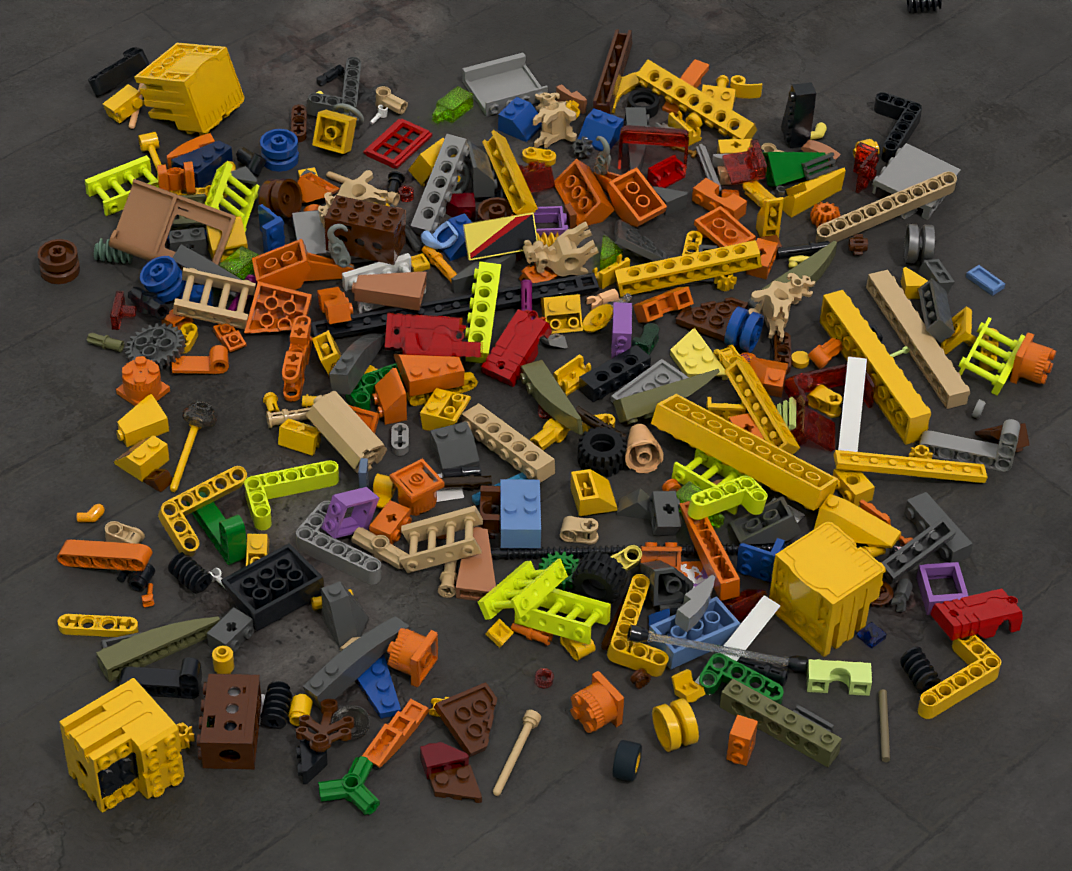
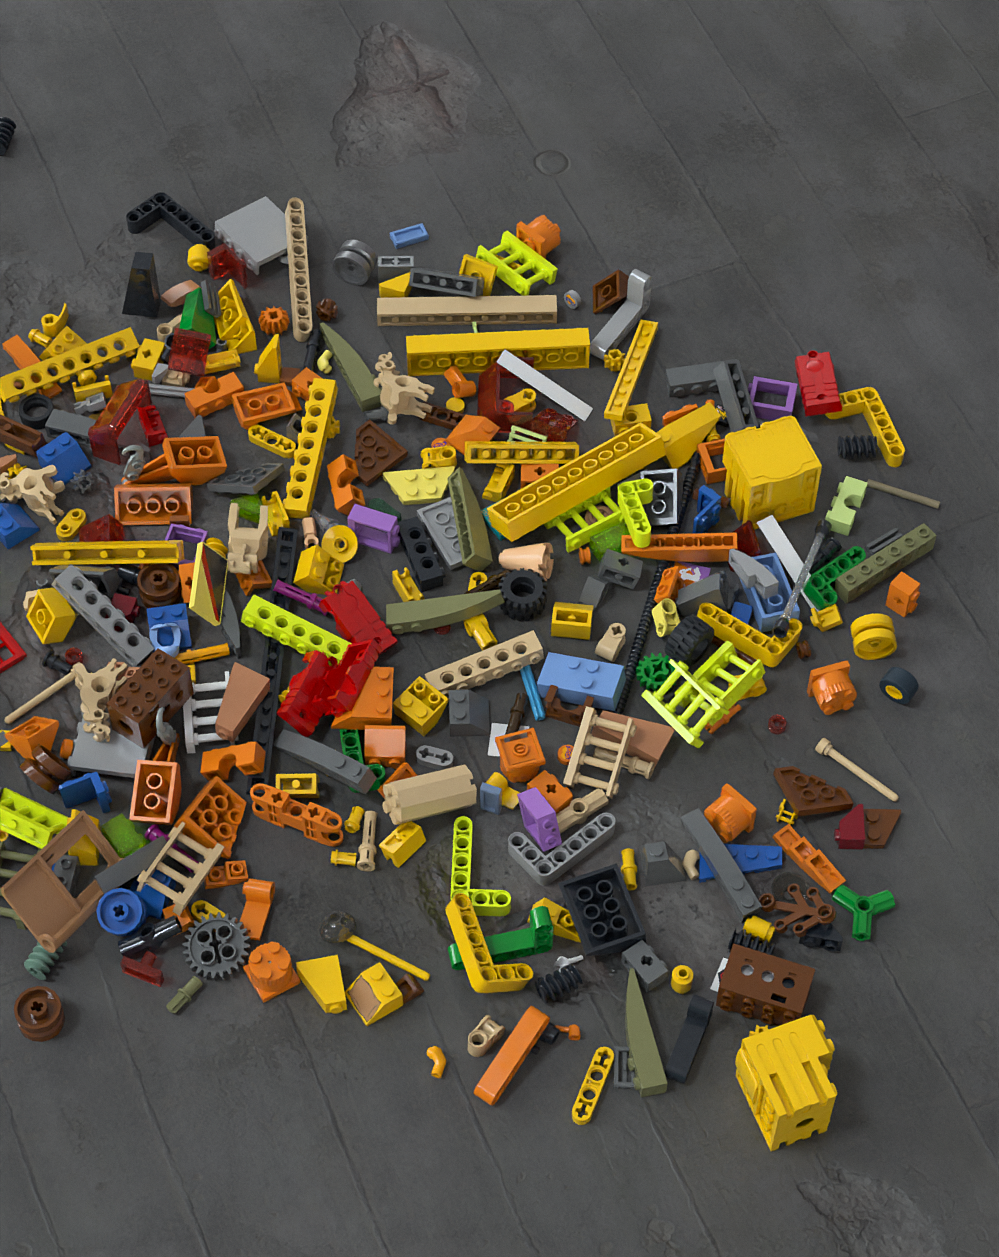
camera: 70 degrees left, 10 degrees up
(461, 471) = (502, 716): black axle -> none
(499, 633) = (715, 743): yellow tile -> none
(744, 329) = (412, 431): blue wheel -> none

